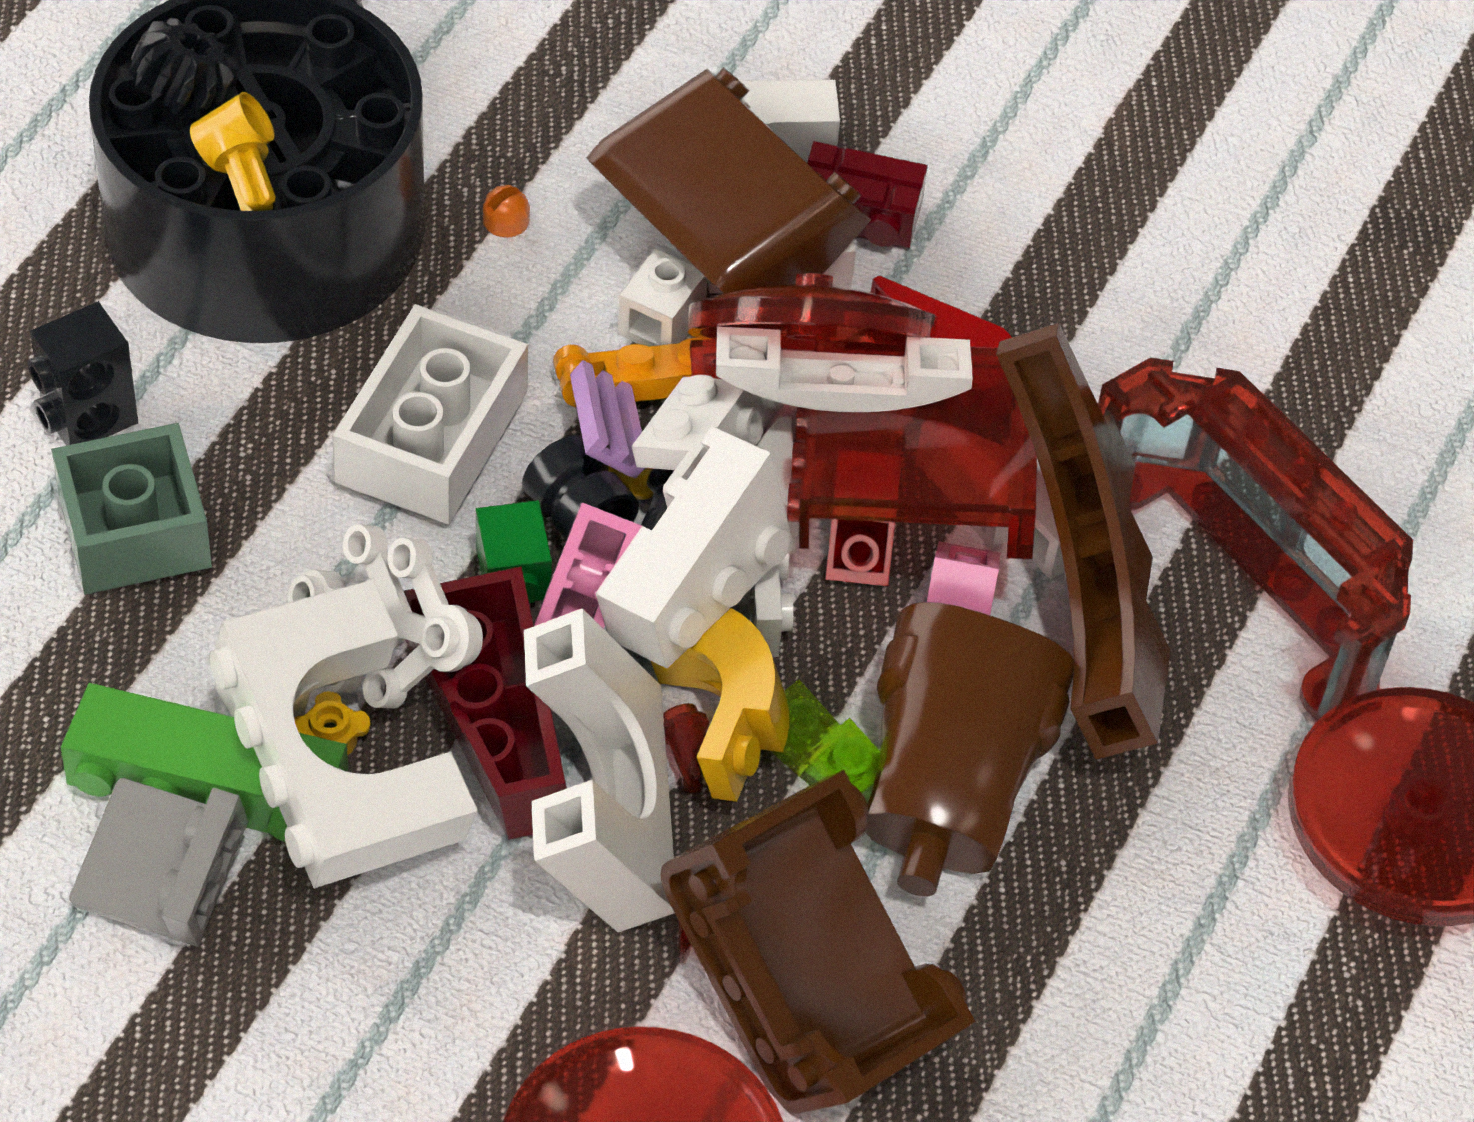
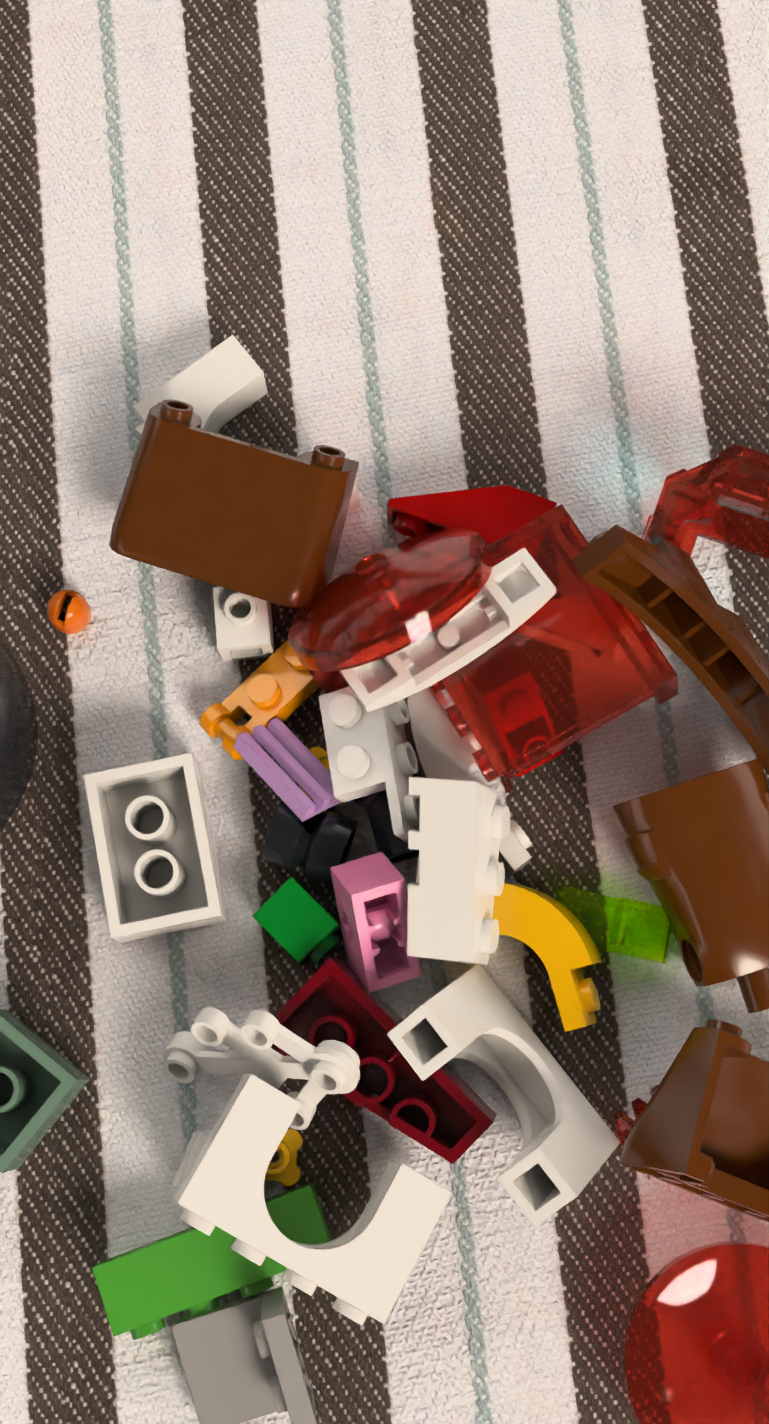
camera: 25 degrees left, 25 degrees up
(685, 733) = (527, 991): clear red pin -> none
(889, 190) = (319, 414): dark red brick -> none
(964, 577) = (634, 747): bright pink slope -> none

